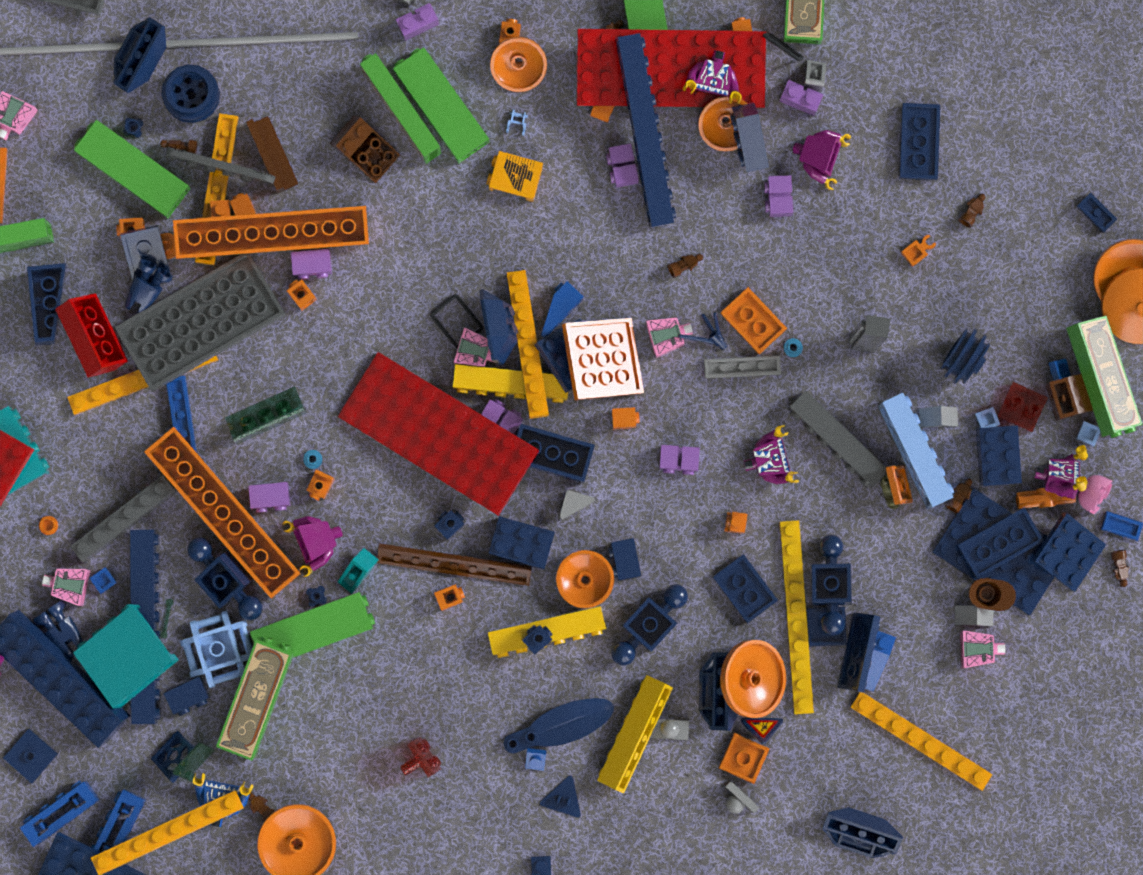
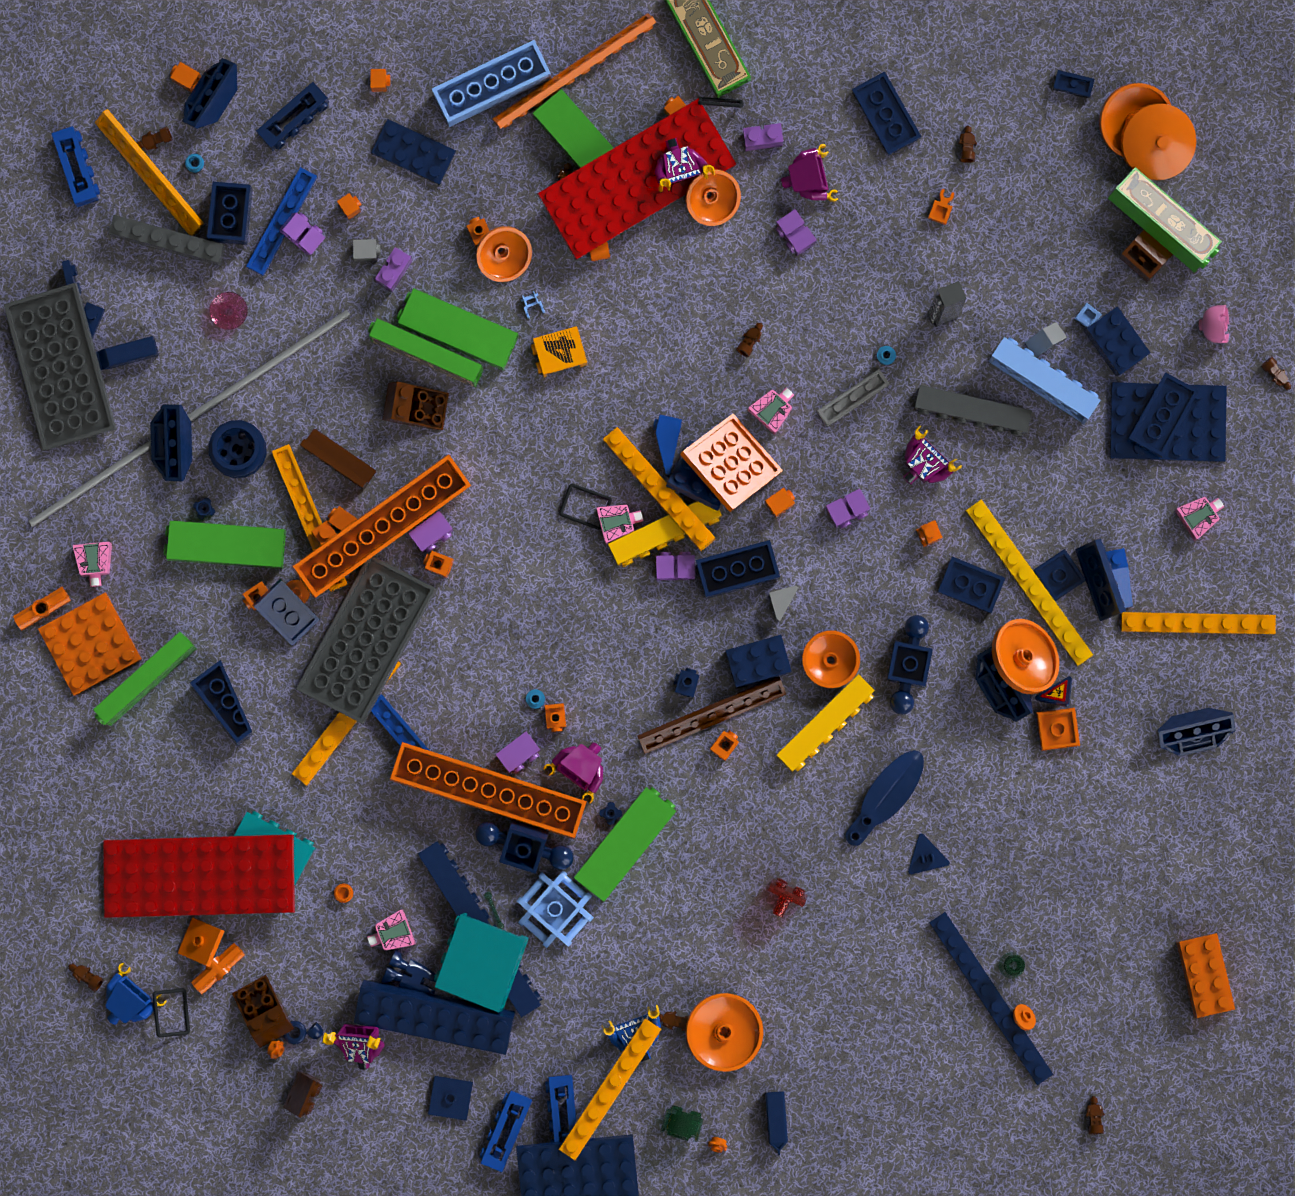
camera: 25 degrees left, 0 degrees up
(91, 335) = (281, 707): red brick -> none
(103, 580) = (420, 911): blue plate -> none
(123, 519) = (405, 848): dark grey brick -> none
(145, 292) = (302, 643): dark blue piece -> none
(159, 756) = (561, 1032): dark blue piece -> none
(187, 696) = (553, 965): dark blue brick -> none
(190, 146) = (264, 495): reddish brown piece -> none
(193, 761) = (594, 1016): clear green piece -> none
(227, 169) = (294, 499): dark grey plate -> none
(255, 697) = (613, 929): brick -> none
(265, 415) = (471, 685): clear green slope -> none
(357, 570) = (632, 770): teal slope -> none
(438, 433) = (630, 611): red plate -> none
(498, 326) = (626, 488): dark blue wedge -> none
(535, 759) = (882, 837): plate -> none
(537, 638) = (822, 733): dark blue brick -> none
(623, 166) = (647, 288): medium lavender piece -> none
(625, 559) = (854, 621): dark blue brick -> none
(634, 734) = (953, 764): yellow brick -> none
(644, 129) = (648, 245): dark blue brick -> none
(671, 729) = (979, 743): light grey tile -> none
(715, 336) = (814, 386): dark blue plant -> none
(738, 801) = (1075, 767): light grey tile -> none
(749, 137) = (740, 198): dark blue brick -> none
(753, 321) = (838, 352): orange plate -> none
(814, 75) = (762, 110): light grey slope -> none
(831, 585) = (1043, 536): dark blue brick -> none
(887, 493) = (1046, 431): olive piece -> none
(899, 484) = (1048, 417): orange plate -> none
(962, 492) = (1104, 391): reddish brown piece -> none
(965, 356) = (1038, 274): dark blue wheel -> none
(973, 616) = (1178, 490): light grey slope -> none
(992, 594) = (1183, 462): reddish brown piece -> none
(1022, 407) = (1111, 288): clear red plate -> none
(1040, 499) = (1178, 353): orange piece -> none
(1059, 369) = (1123, 237): blue plate -> none
(1063, 474) = (1181, 325): torso -> none
(1069, 552) = (1225, 387): dark blue plate -> none
(1088, 433) = (1181, 277): light blue plate -> none
(1121, 526) = (1256, 338): blue tile -> none

